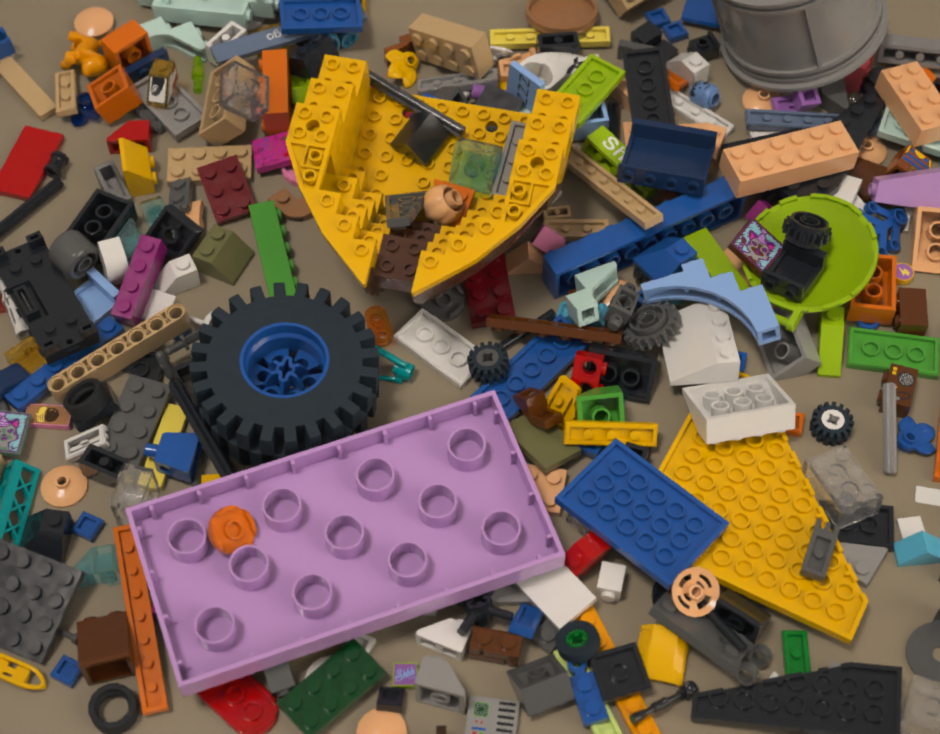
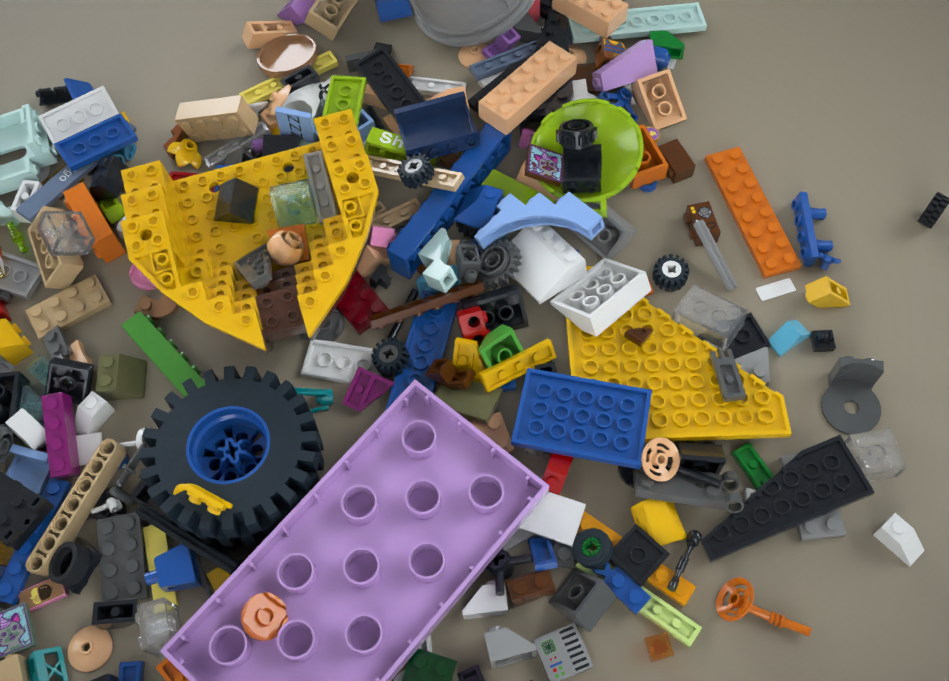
camera: 25 degrees left, 5 degrees up
(74, 453) = (86, 611): white tile -> none
(151, 366) = (112, 504): none -> white hand
(226, 189) = (94, 320): dark red plate -> none
(233, 390) = (198, 495): none -> yellow piece
(271, 152) = (117, 271): dark pink tile -> none
(380, 327) = (286, 371): clear orange plate -> none
(405, 675) = (471, 652): tile -> none
(414, 103) = (216, 177): black axle -> none
(446, 382) = (365, 389): none -> magenta wing
(524, 52) = (279, 98): none -> light nougat dish
(525, 282) = (380, 278): none -> black tile
(610, 581) = (586, 484): white brick -> none
(617, 190) = (416, 171): none -> black wheel
(647, 34) = (362, 43): black brick -> none
(658, 17) = (362, 29): blue tile -> none
(675, 32) = (380, 33): blue tile -> none
(690, 67) = (409, 53): white slope -> none
(704, 94) = (431, 69): medium blue head -> none
(706, 46) = (410, 35): black brick -> none
(753, 466) = (638, 335): none -> reddish brown tile
(830, 342) = (632, 210): lime slope -> none
(877, 349) = (673, 197): bright green tile -> none
(909, 526) = (771, 323): white tile -> none
(915, 436) = (734, 251): blue plate -> none

